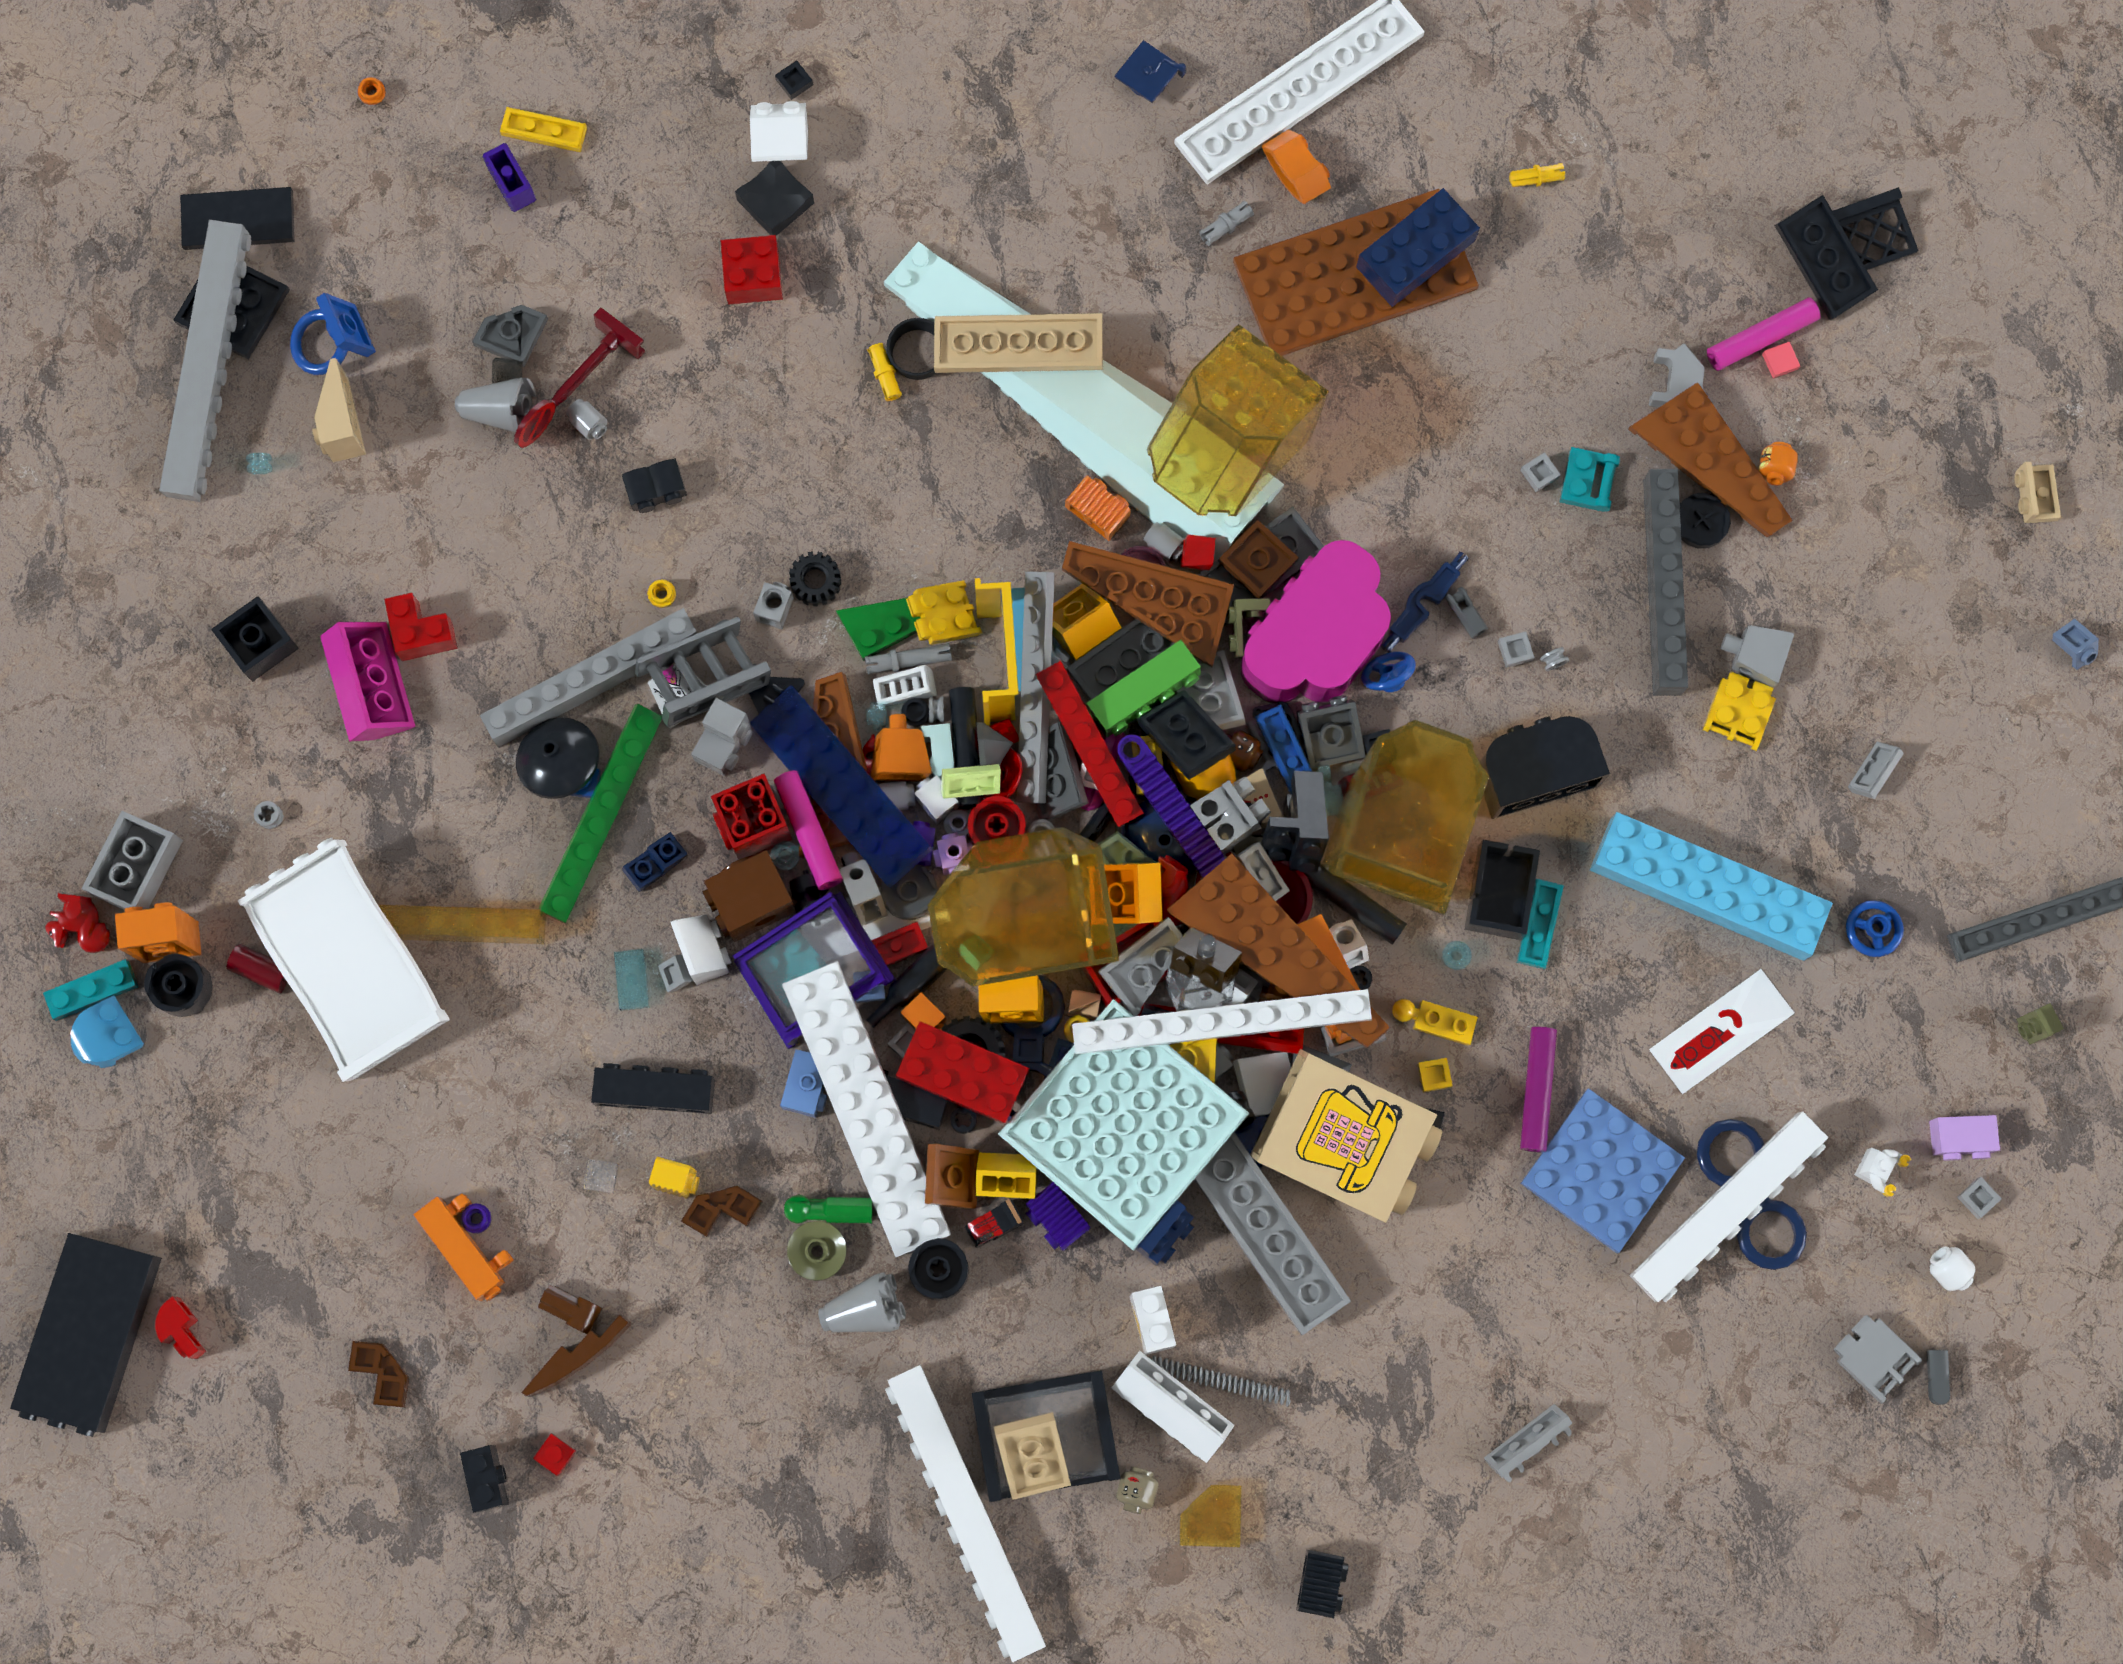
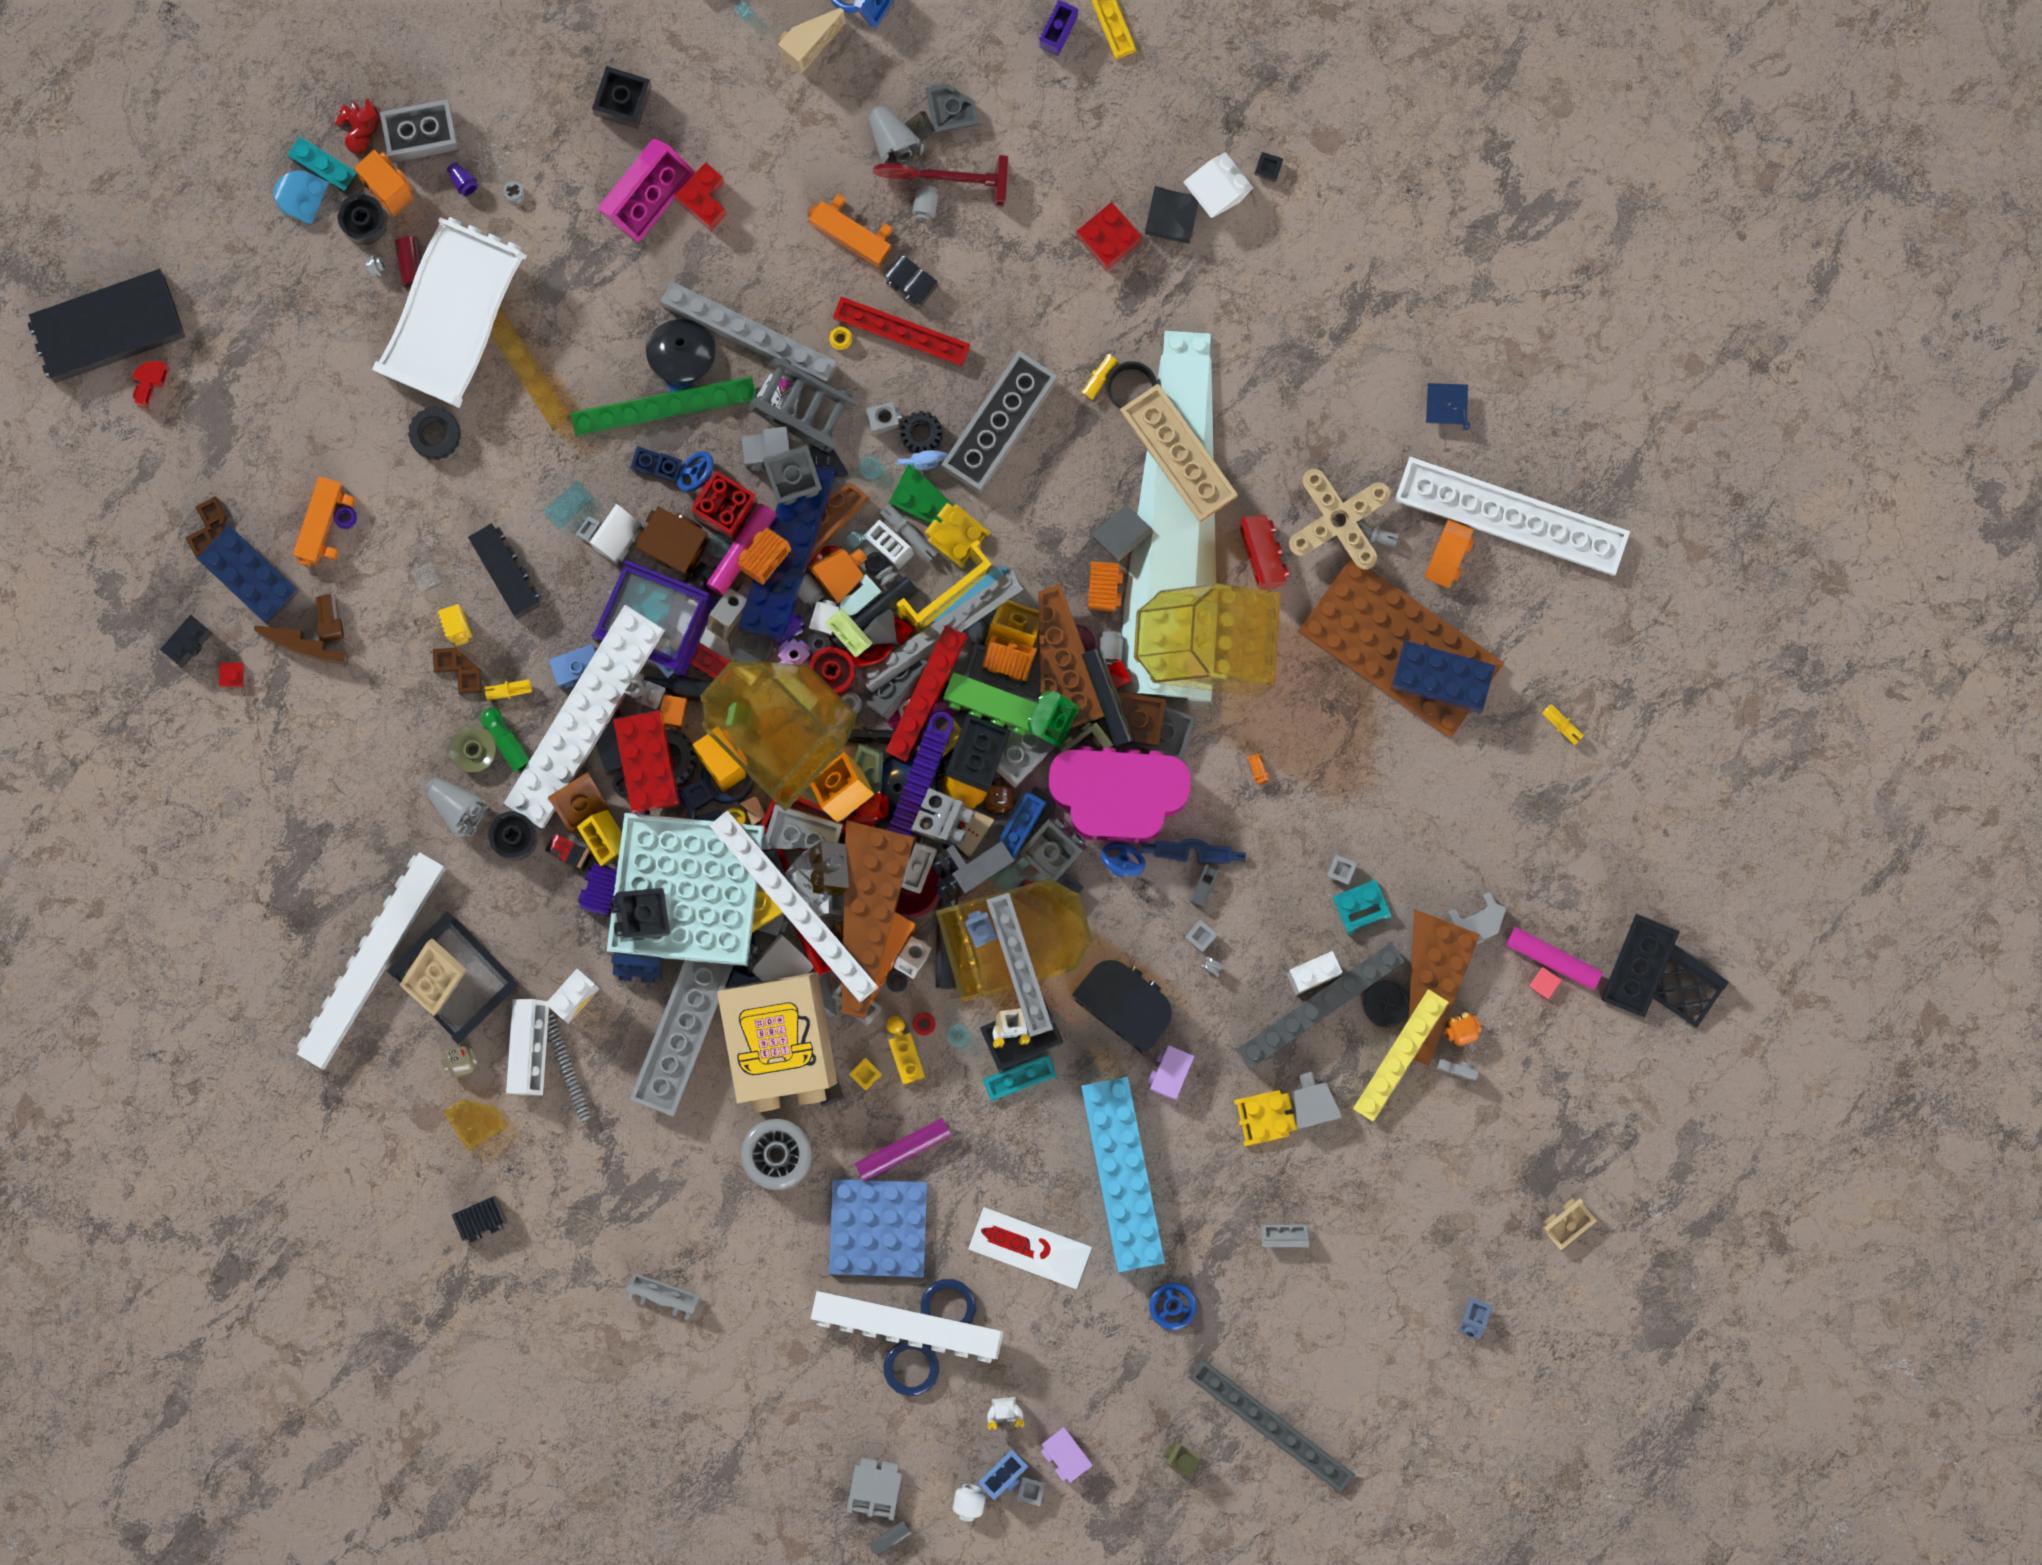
camera: 60 degrees right, 5 degrees up
(219, 856) = (463, 181): none -> dark purple cone
(237, 1005) = (376, 265): none -> light grey plate
(456, 1042) = (439, 450): none -> black tyre
(461, 1362) = (247, 574): none -> dark blue brick
(561, 512) = (849, 233): none -> orange brick
(695, 823) = (699, 473): none -> blue piece
(698, 529) = (901, 331): none -> red plate
(770, 724) = (792, 474): none -> dark grey plate
(780, 1171) = (508, 689): none -> yellow axle
(814, 660) = (871, 474): none -> clear light blue plate
(832, 809) = (763, 555): none -> orange brick
(846, 592) = (924, 460): none -> light blue hand
(861, 495) = (999, 422): none -> light grey brick
(888, 1027) = (646, 693): none -> light grey plate
(1057, 452) = (1122, 533): none -> dark grey tile
(1108, 641) = (1009, 658): none -> orange brick
(1121, 1187) = (640, 914): none -> black plate
(1171, 335) = (1263, 552): none -> red slope
(1192, 223) = (1353, 511): none -> tan piece
(1202, 635) = (1053, 718): none -> green slope
(1218, 570) = (1108, 697): none -> black piece
(1383, 840) = (980, 928): none -> sand blue bracket
(1384, 484) = (1258, 769): none -> orange pin
(1427, 975) = (923, 1016): none -> red plate
(1447, 826) = (1019, 964): none -> light grey plate
(1484, 1217) = (757, 1154): none -> light grey wheel
(1490, 888) = (1010, 1024): none -> white piece
(1632, 561) = (1314, 973): none -> white brick
(1636, 770) = (1171, 1072): none -> lavender brick
(1767, 537) = (1401, 1055): none -> light yellow plate
(1820, 490) = (1464, 1070): none -> light grey plate
(1947, 1213) = (1003, 1475): none -> medium blue brick

